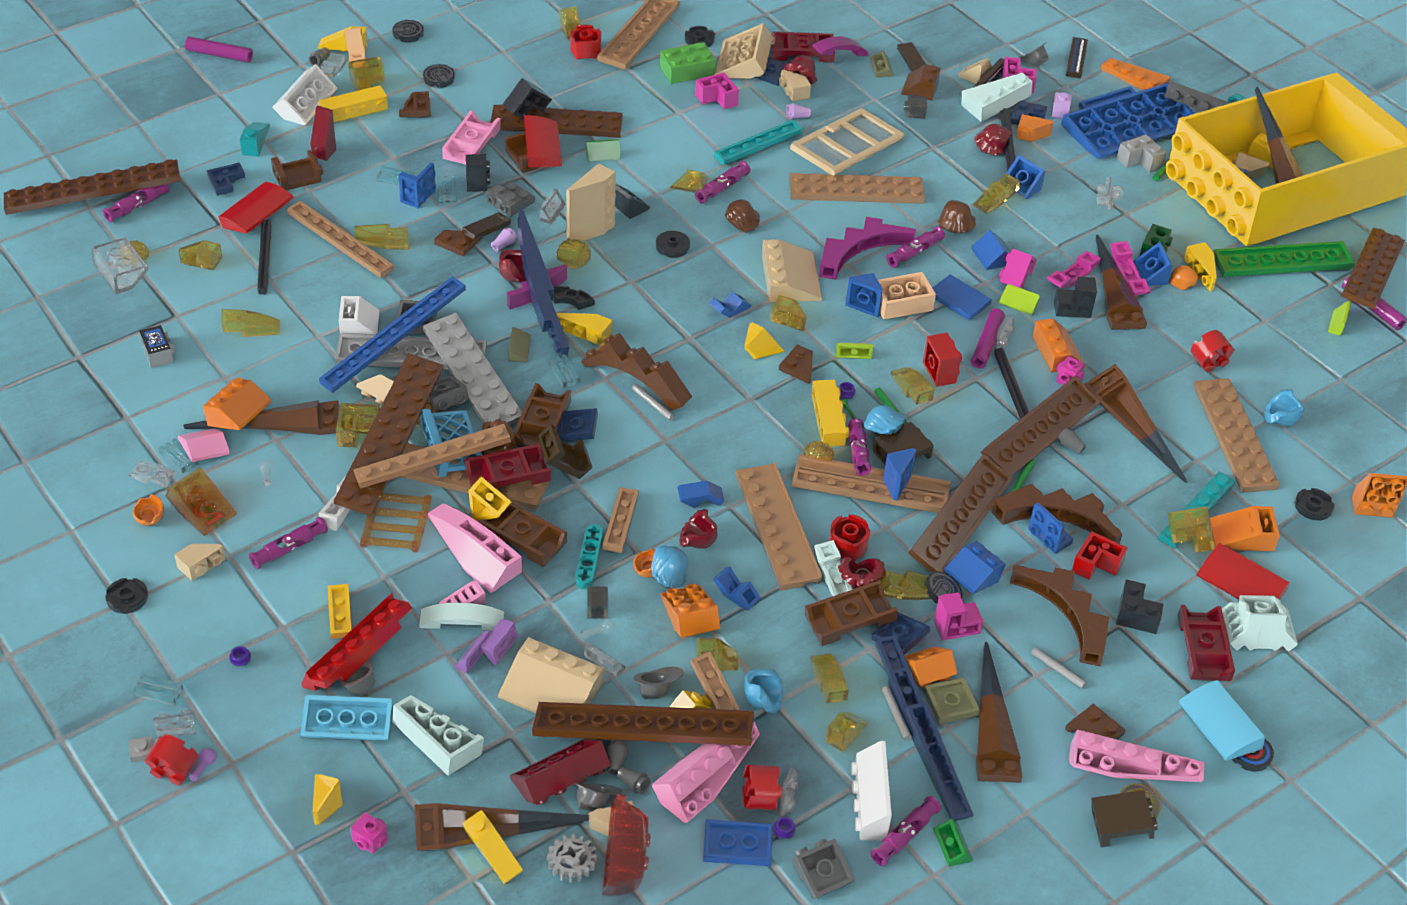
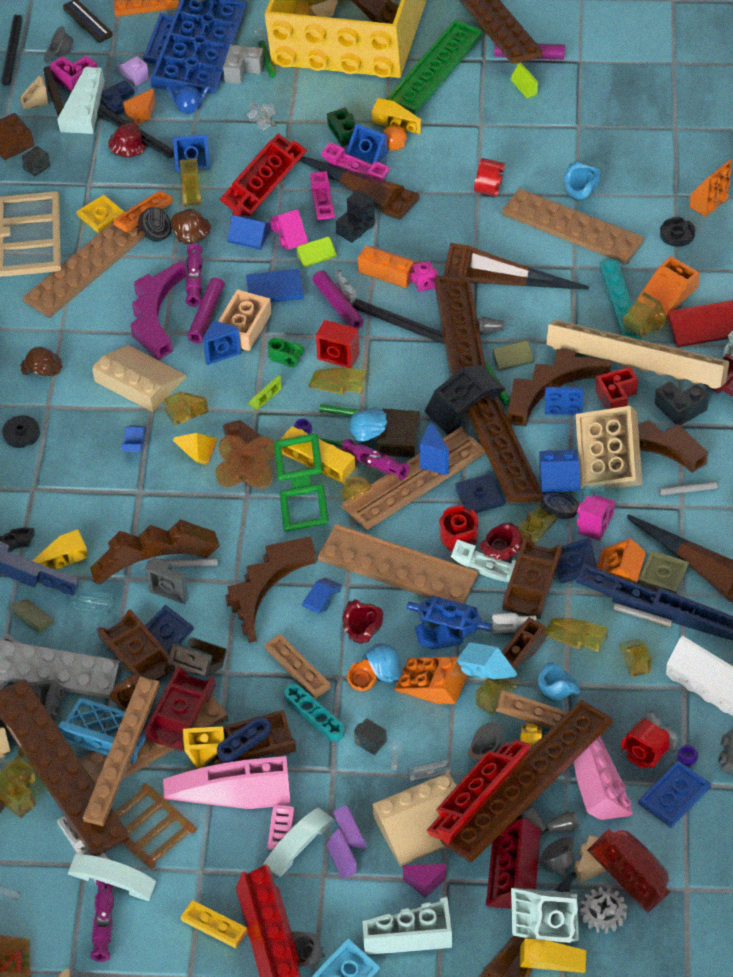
camera: 45 degrees left, 5 degrees up
(328, 525) = (113, 873): none -> light aqua slope
(497, 718) = (424, 877): none -> magenta slope
(513, 522) = (247, 733): none -> dark blue plate
(524, 816) = (545, 915): none -> light aqua slope
(598, 695) = (476, 789): none -> red slope
(617, 393) = (166, 582): none -> dark grey plate
(679, 449) = (261, 577): none -> reddish brown arch
(726, 626) = (485, 662): none -> medium azure slope
(761, 583) = (450, 614): none -> blue plate
(775, 375) = (245, 461): none -> clear orange plant
(776, 645) = (525, 642): none -> reddish brown slope
(789, 417) = (301, 482): none -> green bar
(796, 627) = (508, 622): none -> white arm
(900, 533) = (479, 493): none -> dark blue plate
(901, 268) = (206, 310): none -> magenta piece
(903, 337) = (284, 352): none -> green piece
(913, 166) = (99, 213): none -> yellow tile
(933, 197) = (155, 224): none -> tile
(938, 184) = (130, 218): none -> orange plate
(978, 599) = (593, 489): none -> clear light blue tile
(979, 456) = (459, 395): none -> black slope
(999, 38) = (11, 50): none -> black axle
(1030, 584) = (609, 448): none -> tan slope
(1051, 224) = (262, 175): none -> red slope
(1060, 473) = (512, 355): none -> olive slope
(1073, 146) = (188, 98): none -> blue piece
(1148, 547) = (638, 353): none -> tan brick

